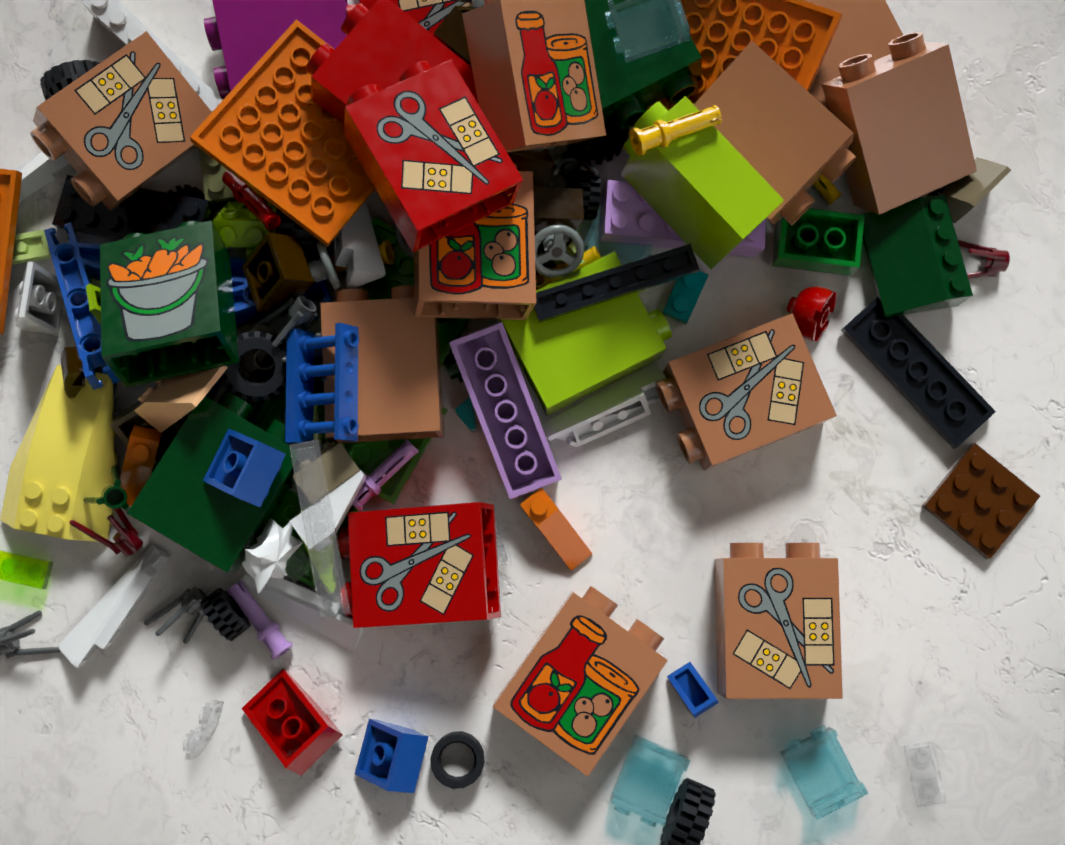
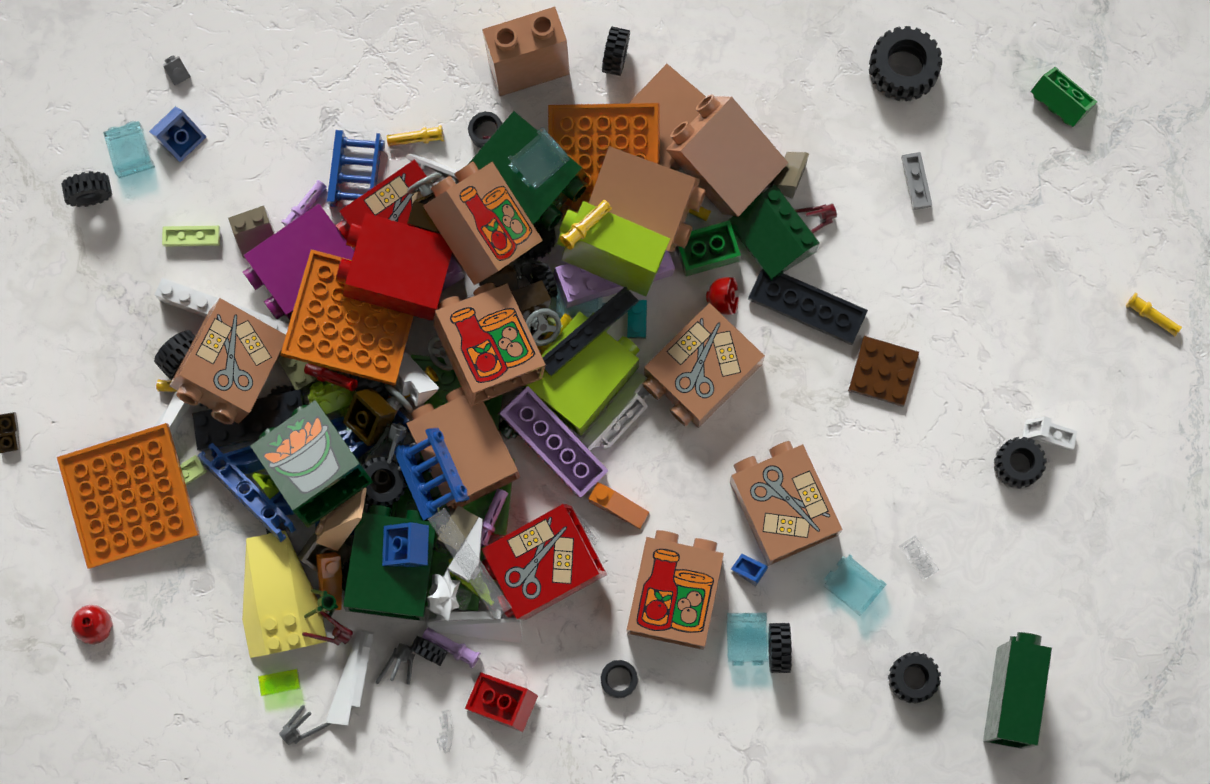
camera: 20 degrees left, 5 degrees down
(39, 302) = (213, 503): white slope -> none
(72, 372) = (263, 535): dark brown slope -> none
(391, 756) = (575, 694): blue slope -> none
(430, 153) = (441, 300): red brick -> none
(466, 413) = (528, 457): teal slope -> none

